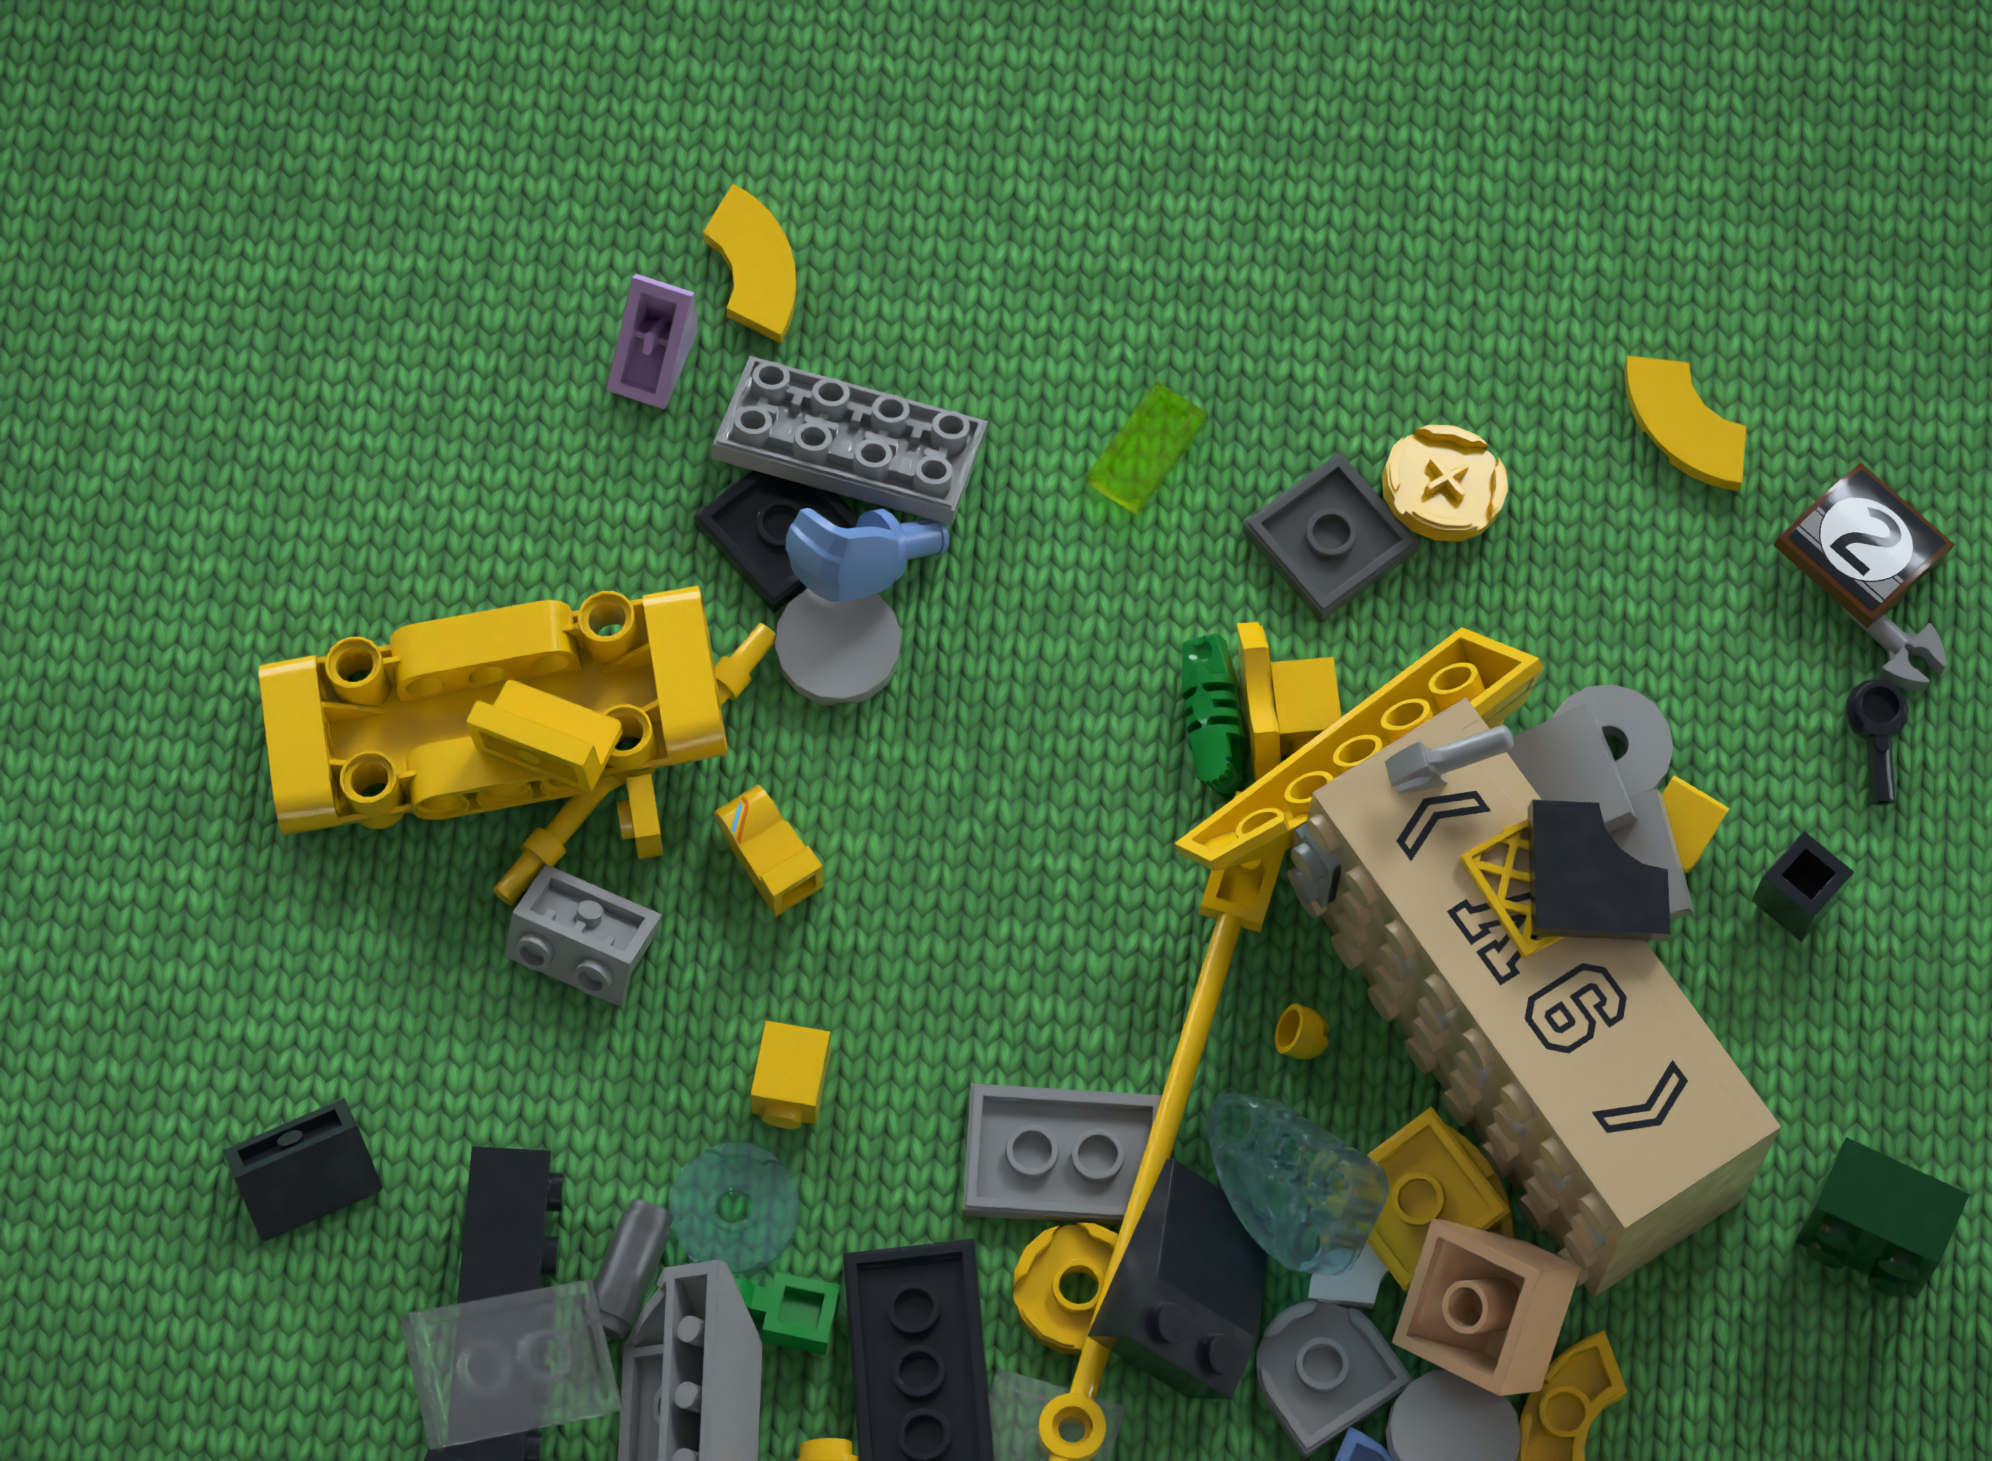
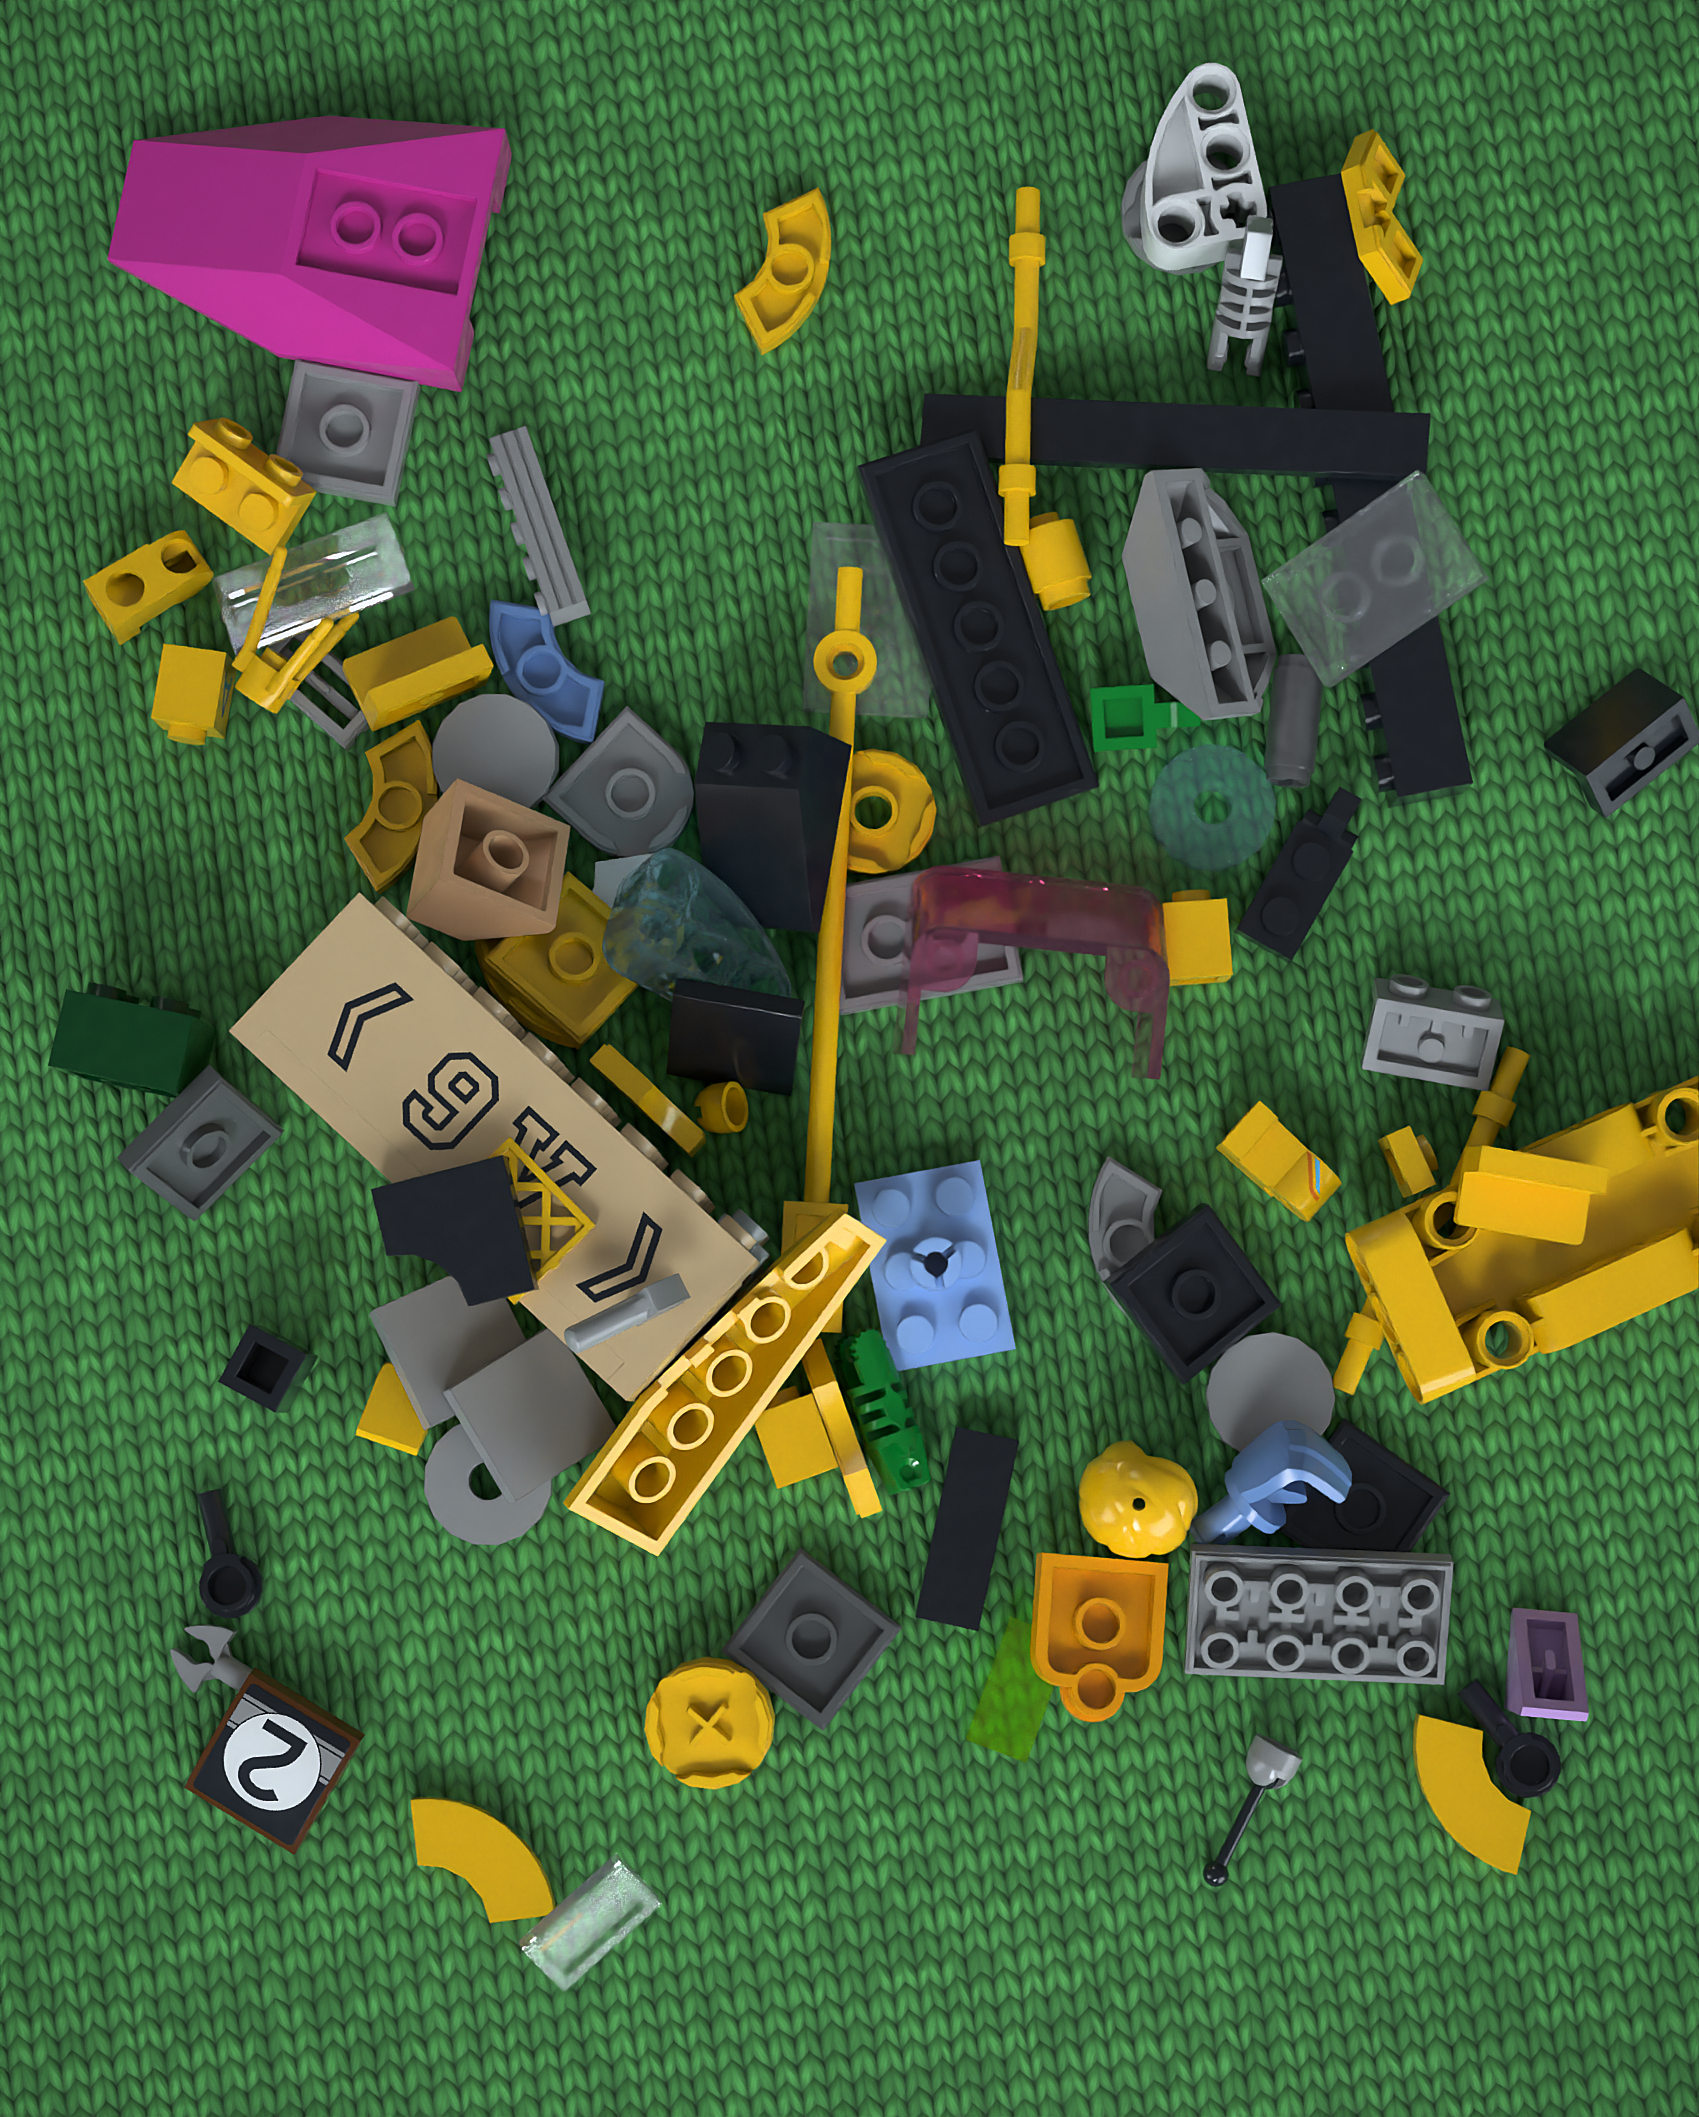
camera: 170 degrees right, 15 degrees up
(664, 1116) = (1301, 878): none -> black hinge
(701, 271) = (1526, 1760): none -> black plate
(887, 747) = (1192, 1293): none -> black tile
(931, 326) = (1269, 1767): none -> hinge
(937, 816) = (1119, 1218): none -> light grey tile
(948, 1120) = (961, 907): none -> clear pink windscreen
(998, 567) = (1108, 1496): none -> yellow piece
(1059, 475) = (1097, 1629): none -> light orange plate
(1120, 838) = (938, 1269): none -> light blue plate
(1158, 597) = (967, 1528): none -> black tile
(1274, 1083) = (734, 1036): none -> black tile
(1377, 1049) = (648, 1099): none -> yellow tile
(1595, 341) = (590, 1922): none -> clear tile
(1836, 1107) = (200, 1143): none -> dark grey tile

